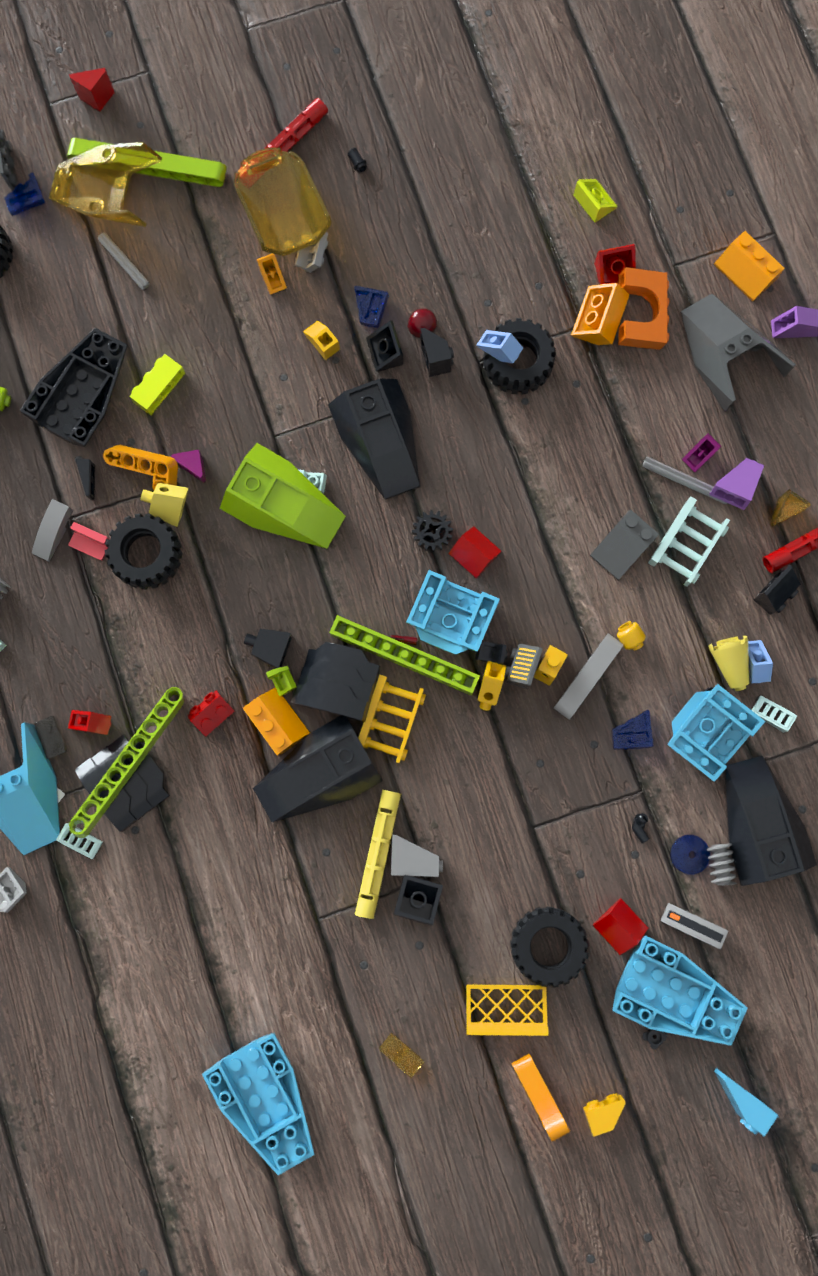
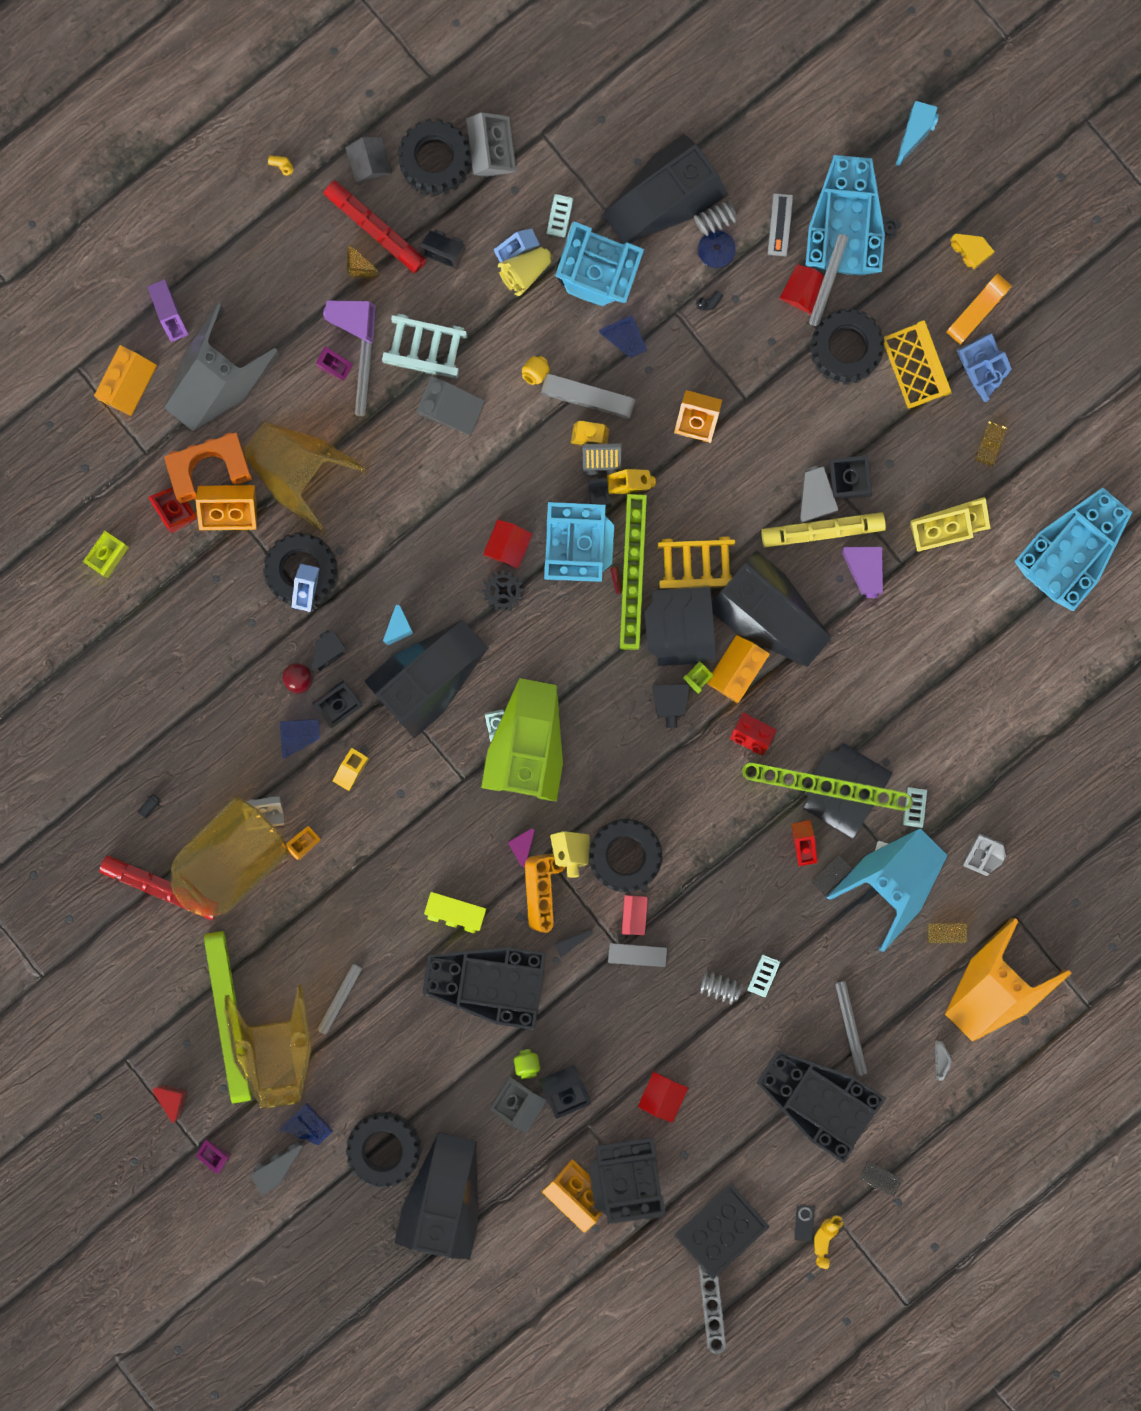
camera: 110 degrees left, 5 degrees up
(31, 110) = (213, 1156): none -> magenta slope
(324, 882) = (866, 569): none -> medium lavender slope
(335, 982) = (950, 525): none -> light yellow slope
(435, 423) = (398, 627): none -> medium azure slope
(482, 1080) = (984, 364): none -> medium blue slope
(532, 774) = (698, 416): none -> light orange slope
(622, 953) = (828, 279): none -> light grey axle
(625, 383) = (288, 463): none -> clear yellow windscreen

